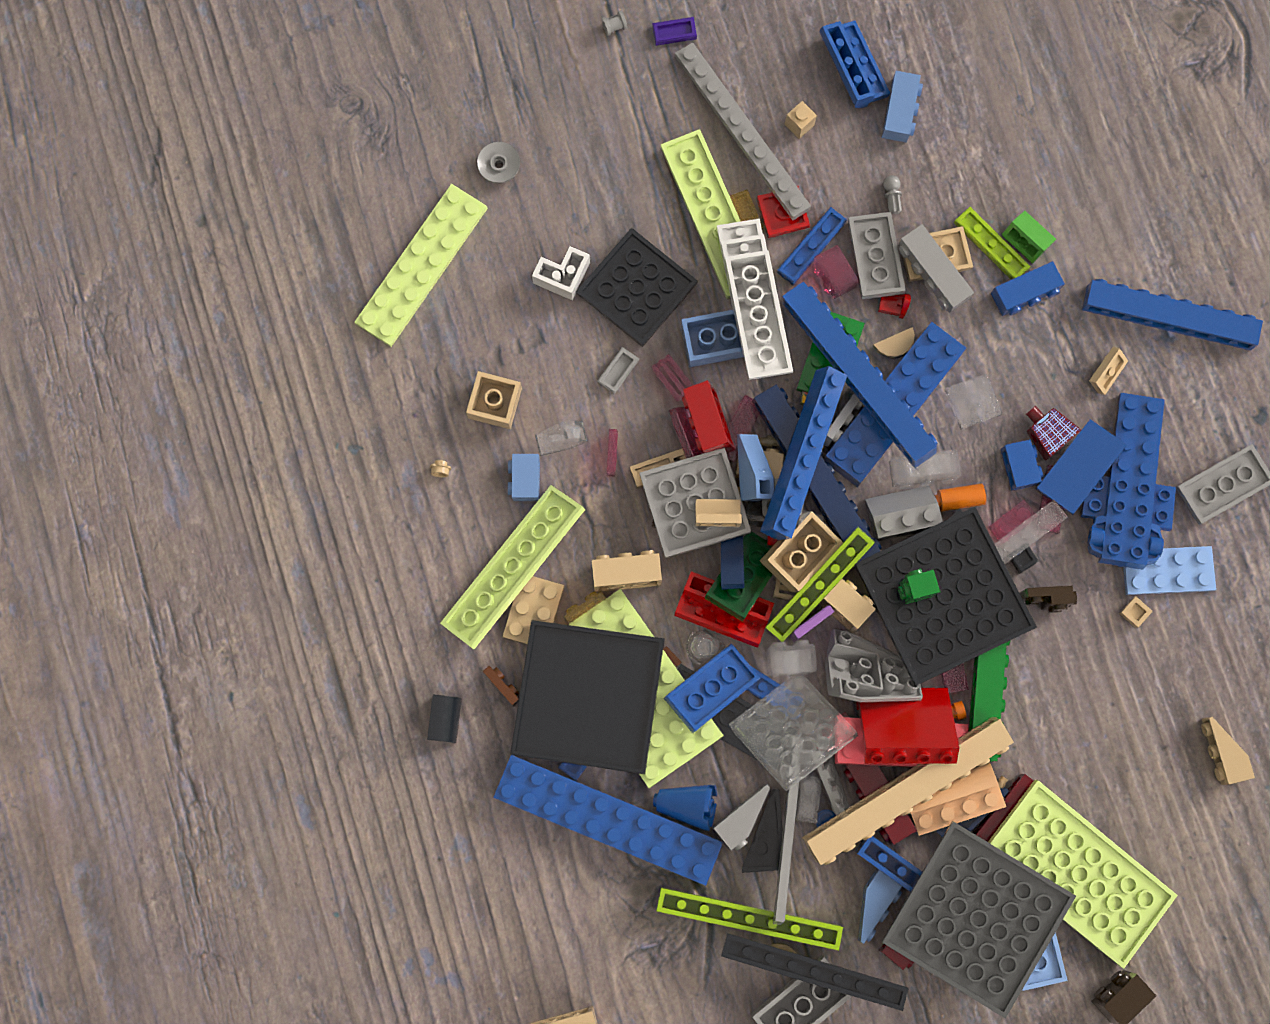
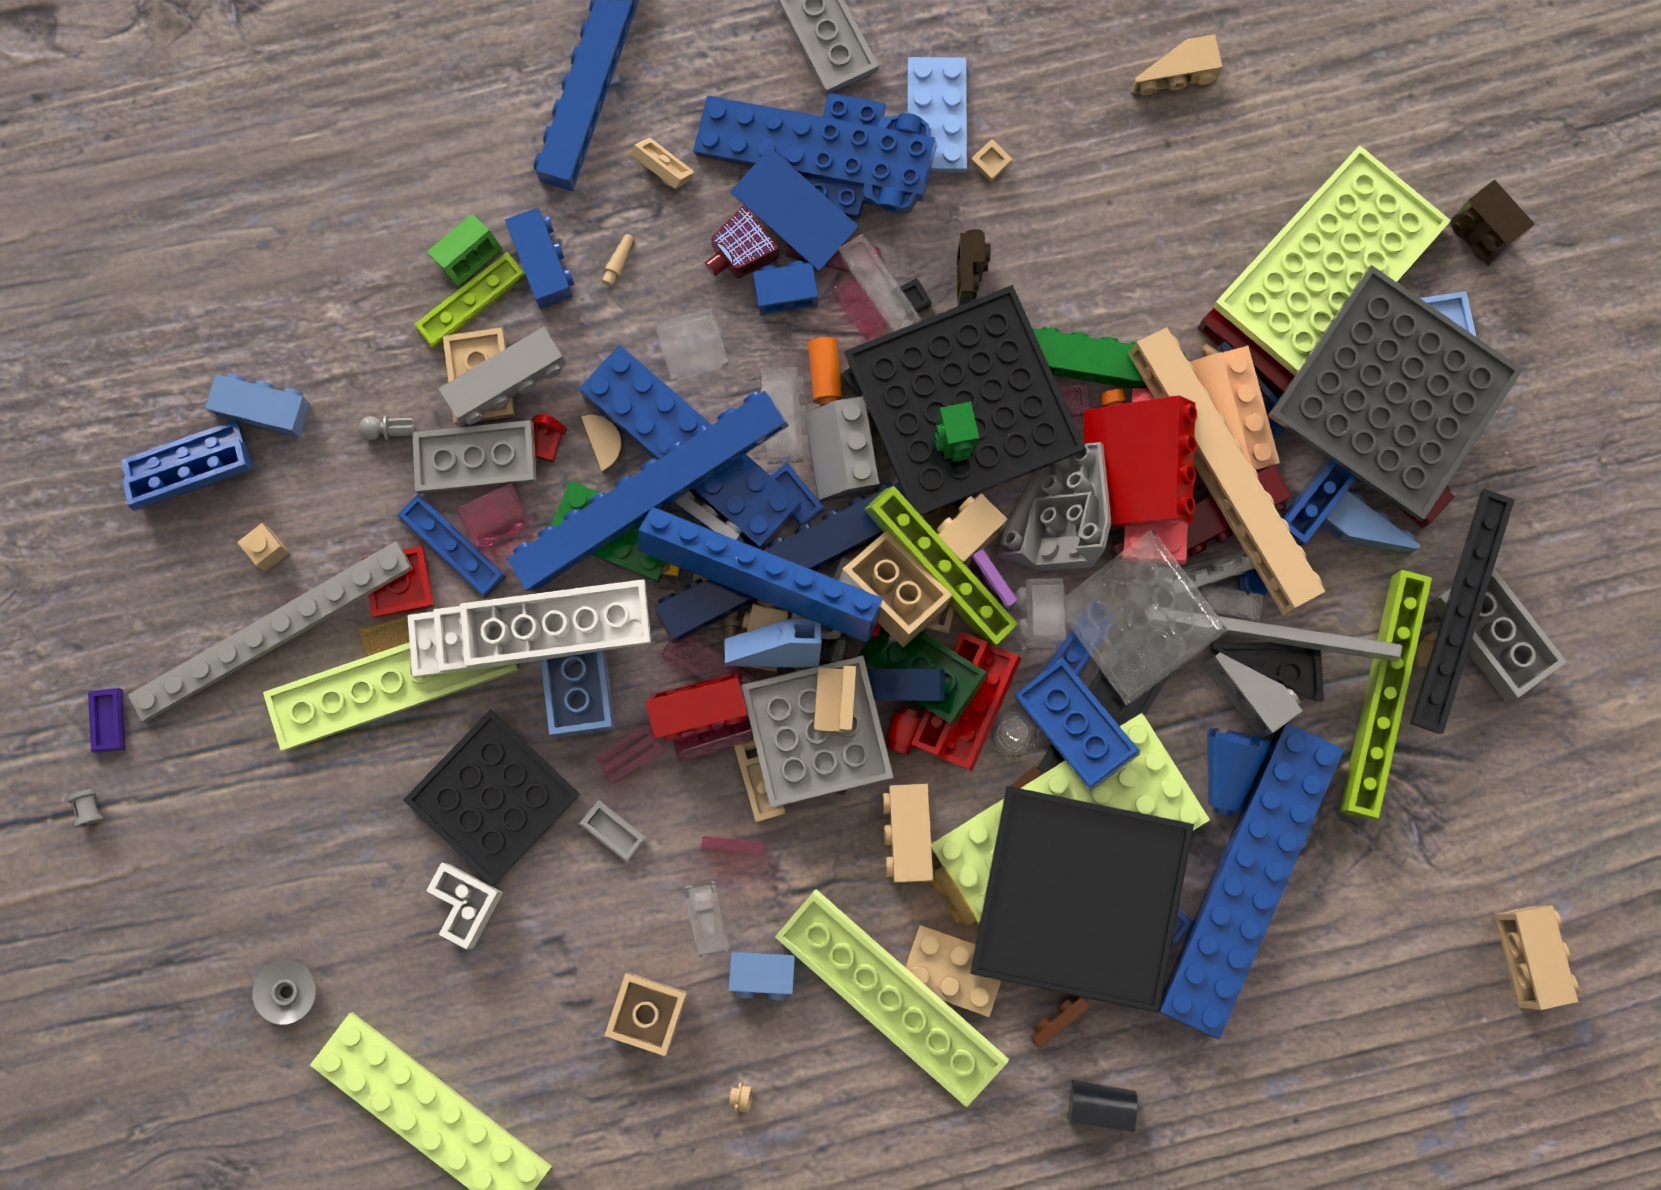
camera: 85 degrees left, 0 degrees up
(700, 565) = (902, 730): none -> red brick
(869, 484) = (809, 503): none -> blue tile
(1029, 344) = (617, 261): none -> tan animal

